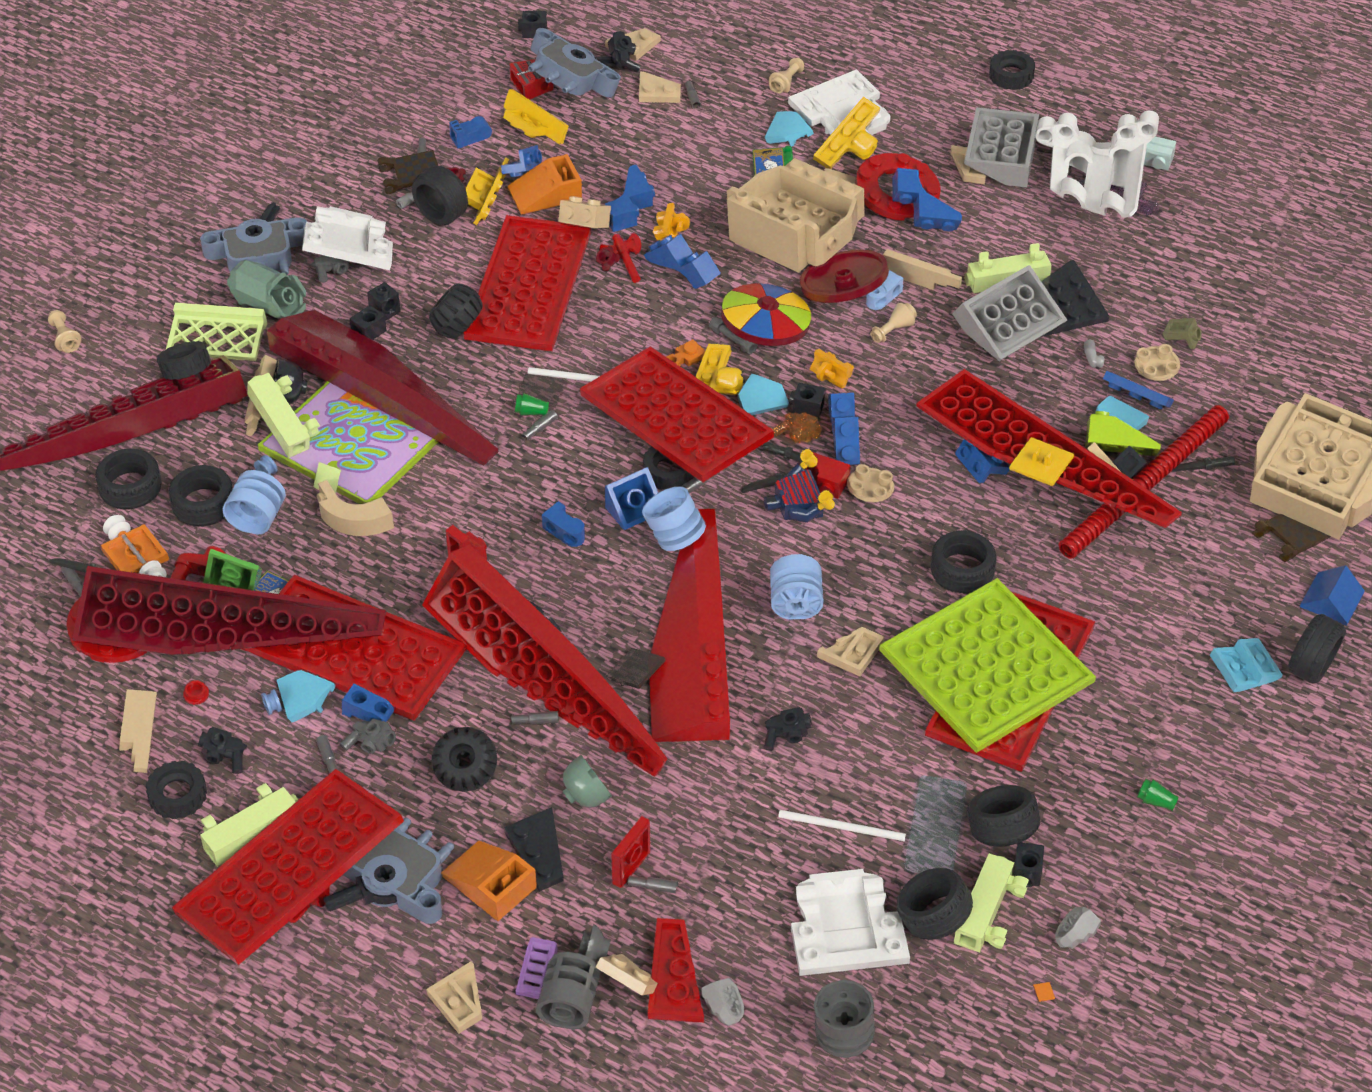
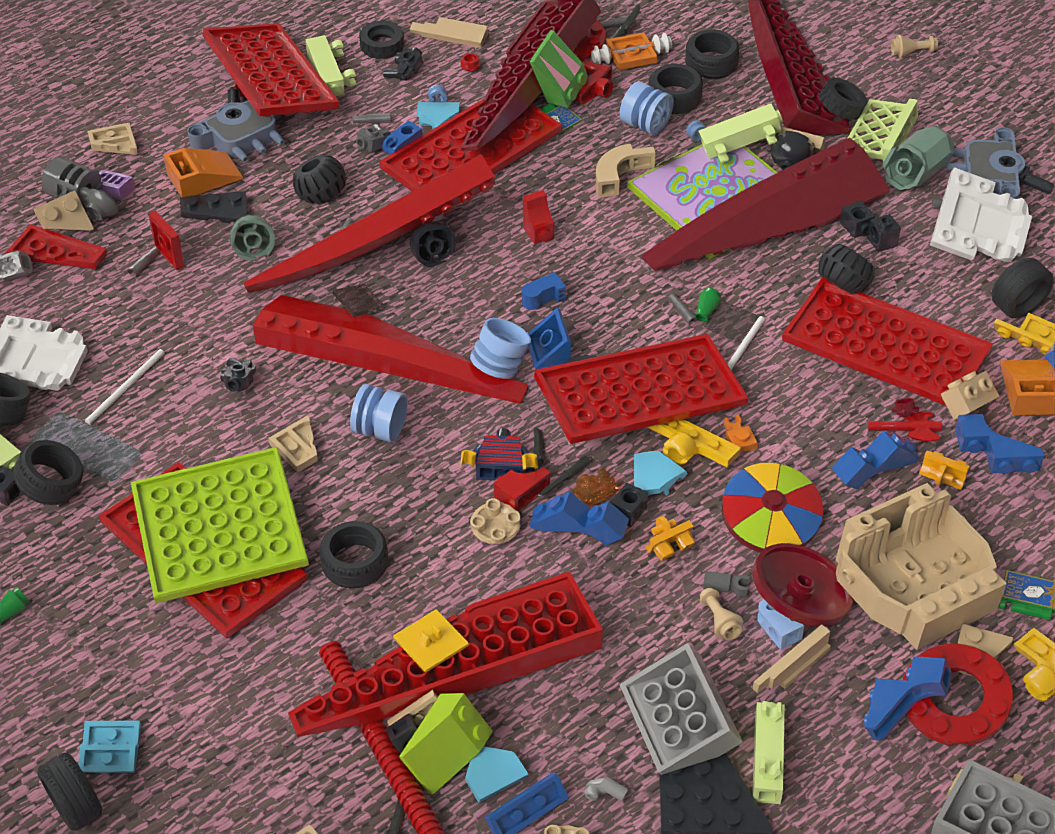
camera: 110 degrees right, 0 degrees up
(857, 330) = (726, 583): none -> dark grey bar

